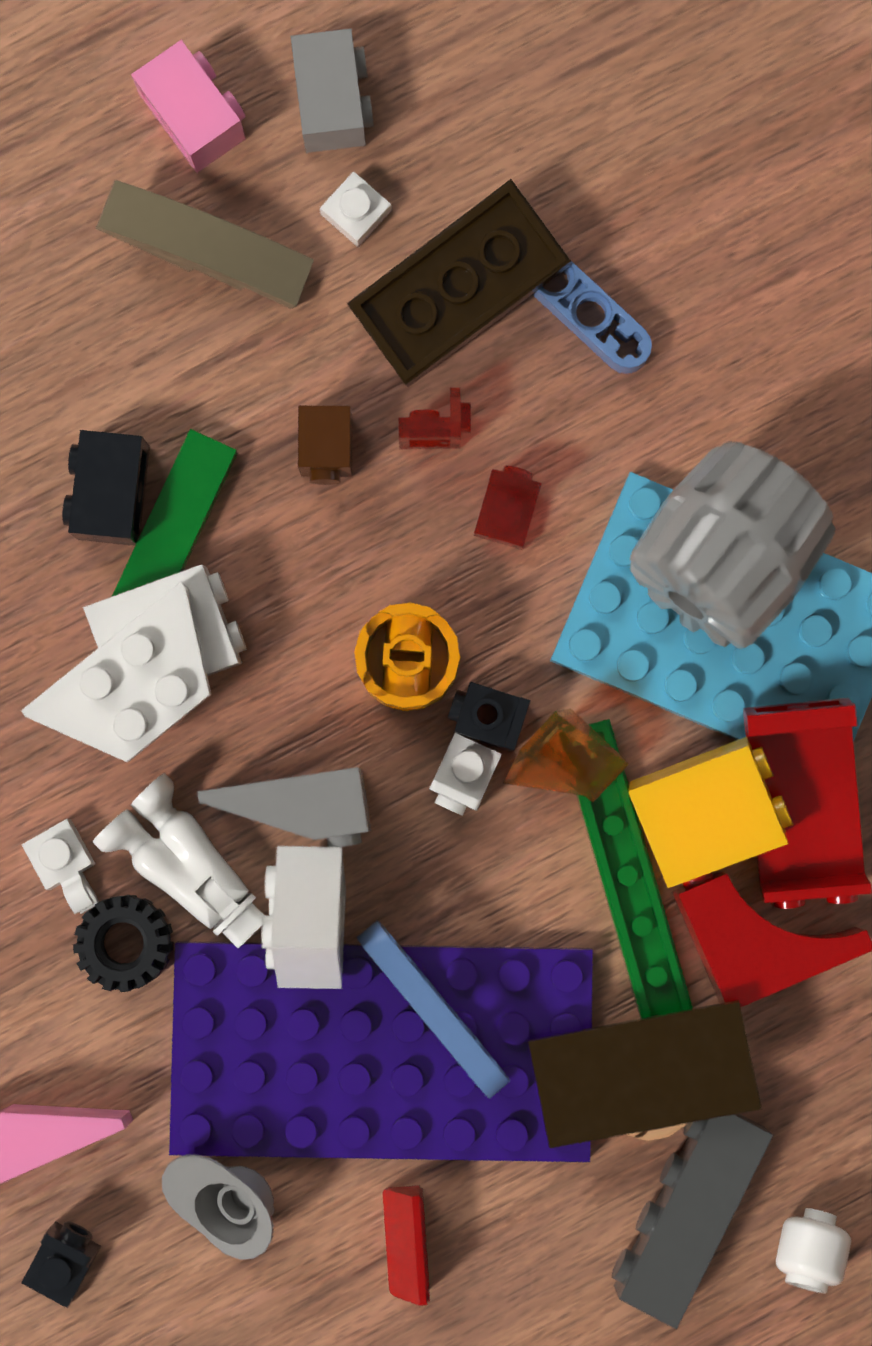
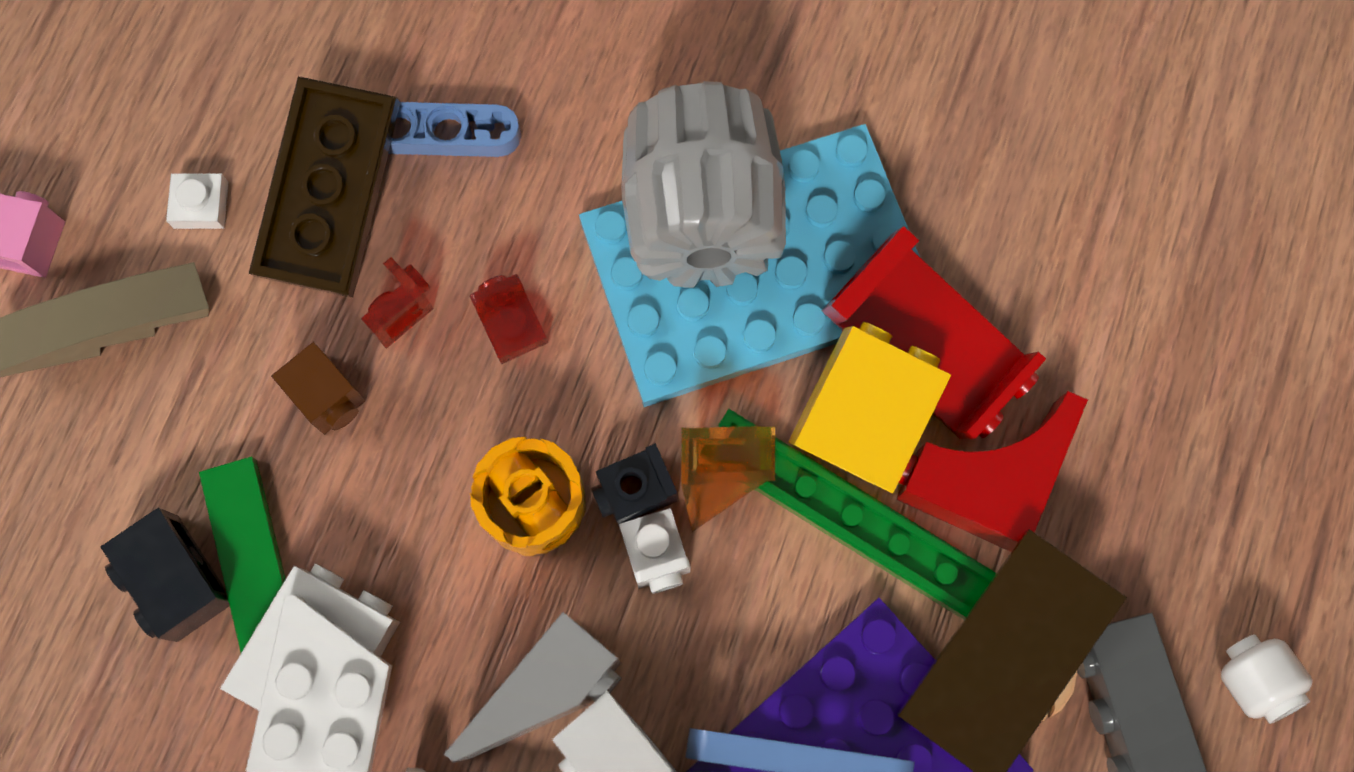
camera: 40 degrees left, 10 degrees down
(328, 90) = (102, 131): light grey brick -> none

